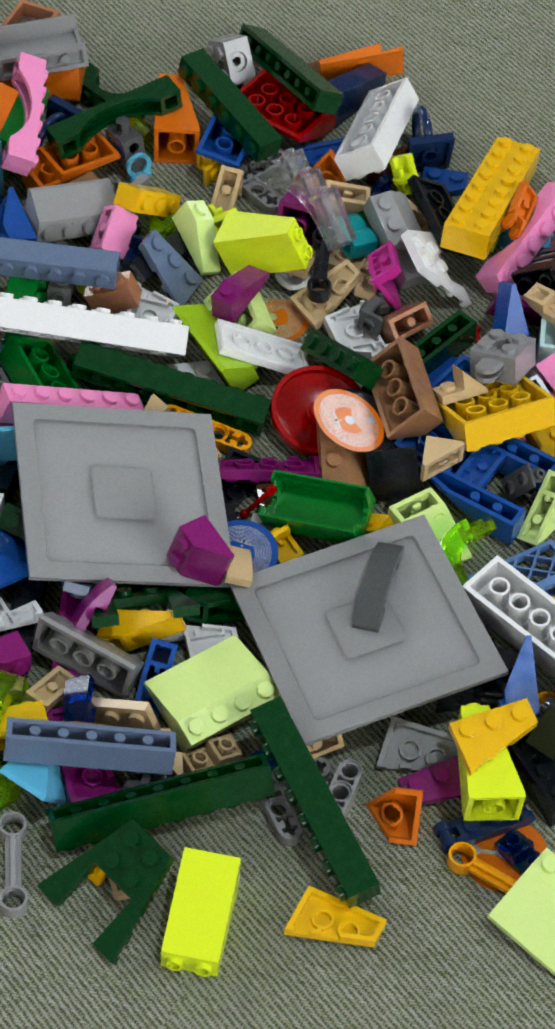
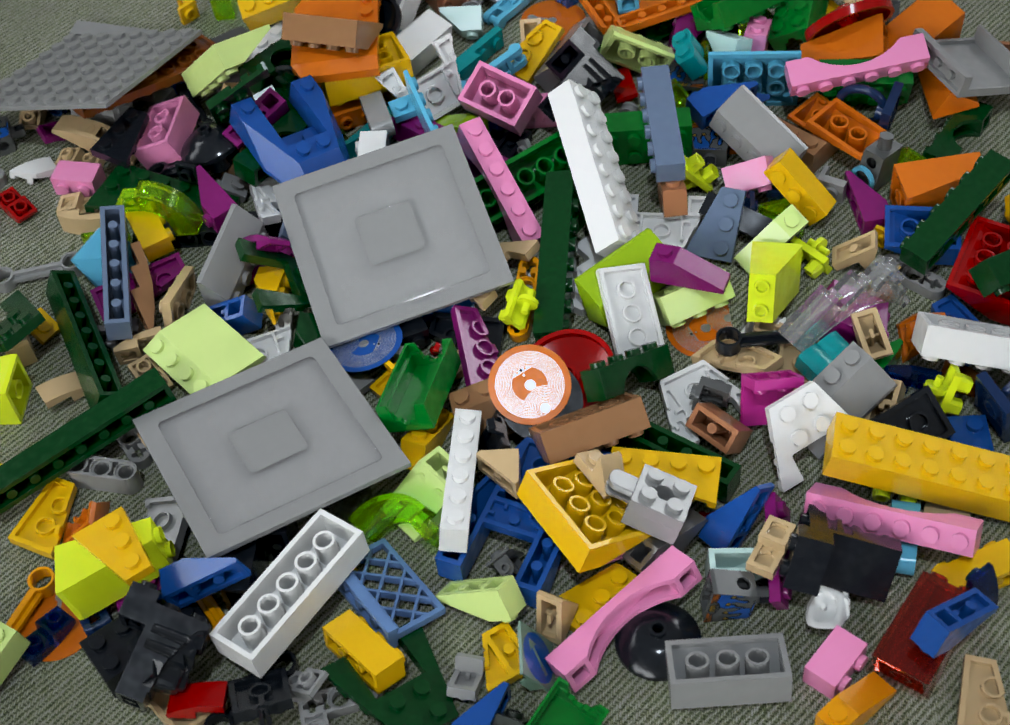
camera: 90 degrees right, 0 degrees up
(50, 689) = (192, 247): tan slope -> none
(78, 699) = (168, 269): clear blue slope -> none
(153, 98) = (928, 149): dark green arch -> none
(170, 173) = (865, 203): none -> magenta slope
(200, 552) = (326, 294): magenta slope -> none
(213, 833) = (60, 388): none -> tan slope
(237, 433) = (519, 304): none -> neon yellow hips
(241, 568) = (339, 336): tan slope -> none
(376, 586) = (314, 432): dark grey slope -> none
(392, 858) = (45, 519): none -> yellow wing
(456, 348) = (695, 469): none -> yellow wing
(484, 492) = (460, 481): none -> white arch
(520, 210) = (917, 495): orange hinge -> none

